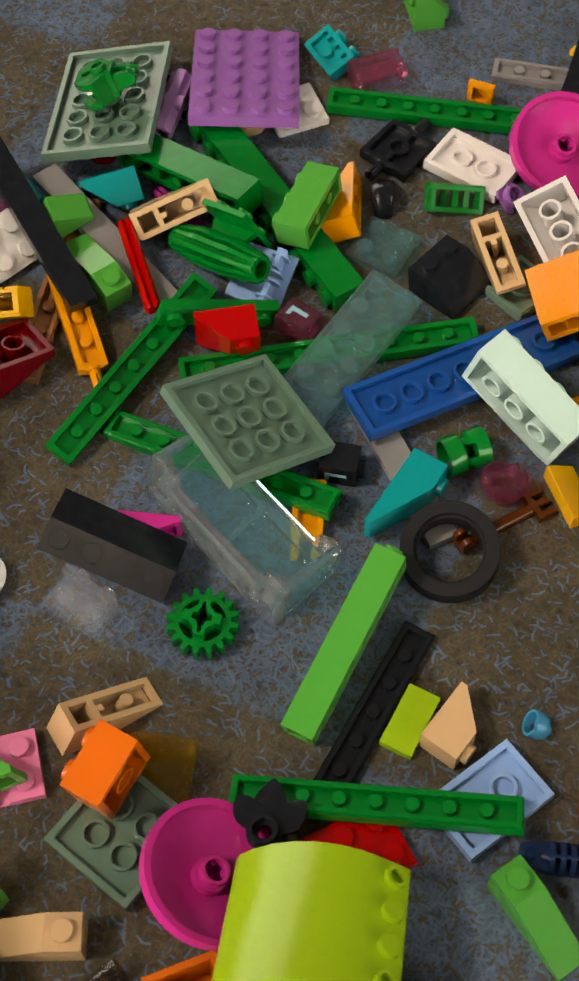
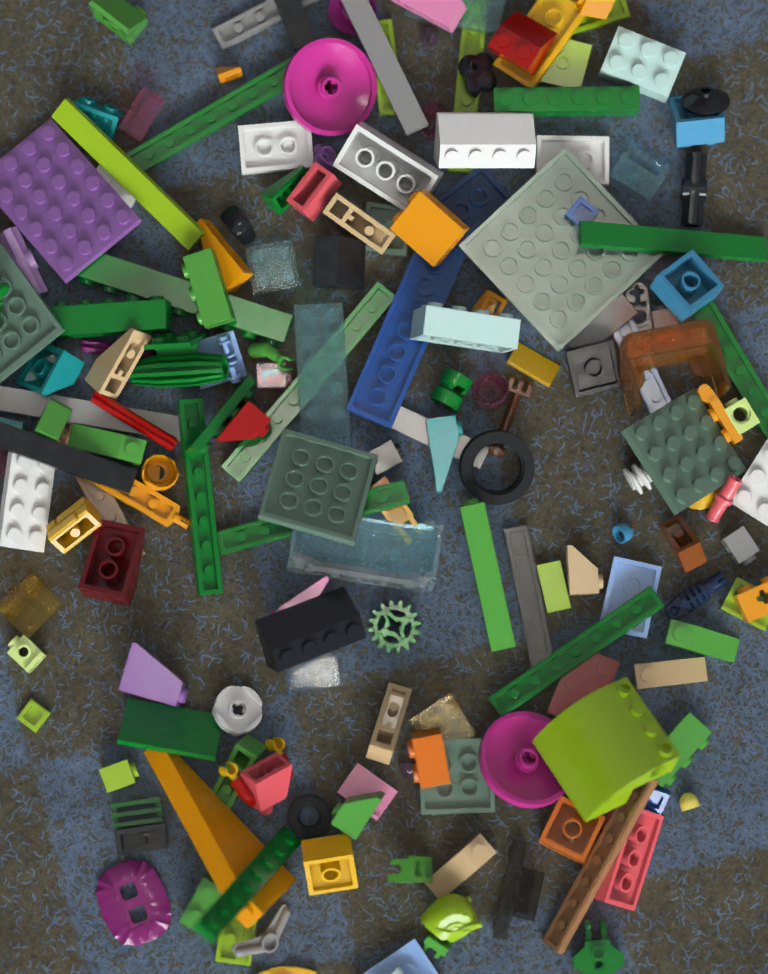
camera: 45 degrees left, 25 degrees up
(113, 319) = (151, 472): none -> light orange hair
(270, 811) = (527, 702): black plate -> none
(315, 296) = (265, 349): none -> bright green arm
(323, 93) = (128, 174): none -> lime tile
(397, 149) = (214, 174): black plate -> none
(467, 922) = (669, 673): none -> tan slope
(474, 203) = (314, 191): none -> coral brick

